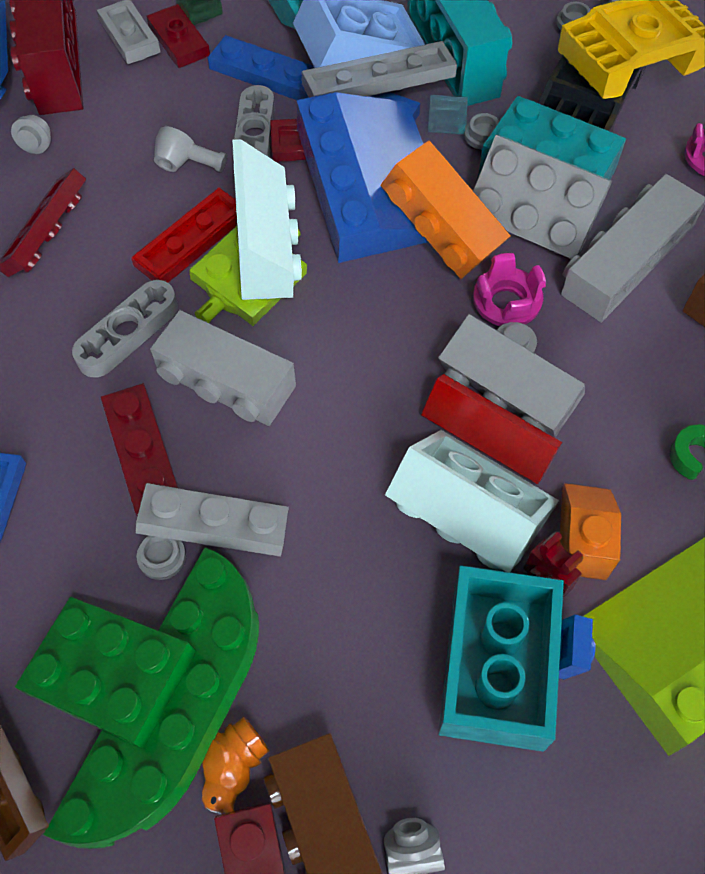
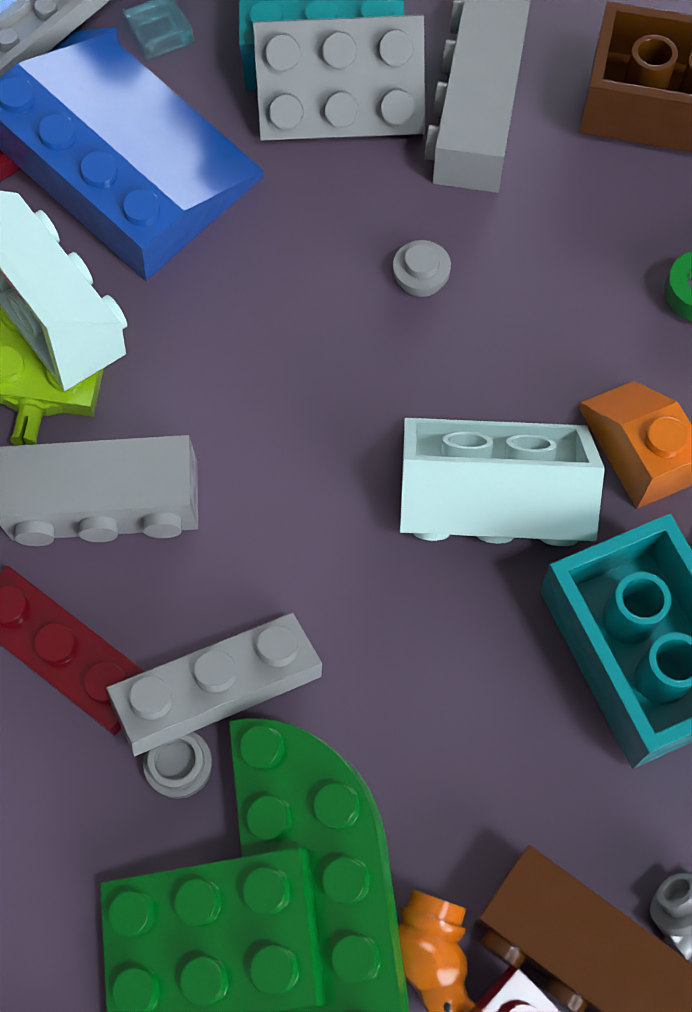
camera: 30 degrees left, 5 degrees up
(444, 209) = (246, 147): orange brick -> none
(480, 129) = (216, 27): light grey plate -> none
(491, 428) = (464, 384): red tile -> none
(506, 277) = (364, 193): dark pink piece -> none
(511, 376) = (450, 311): light grey brick -> none
(554, 562) = (637, 500): dark red plate -> none

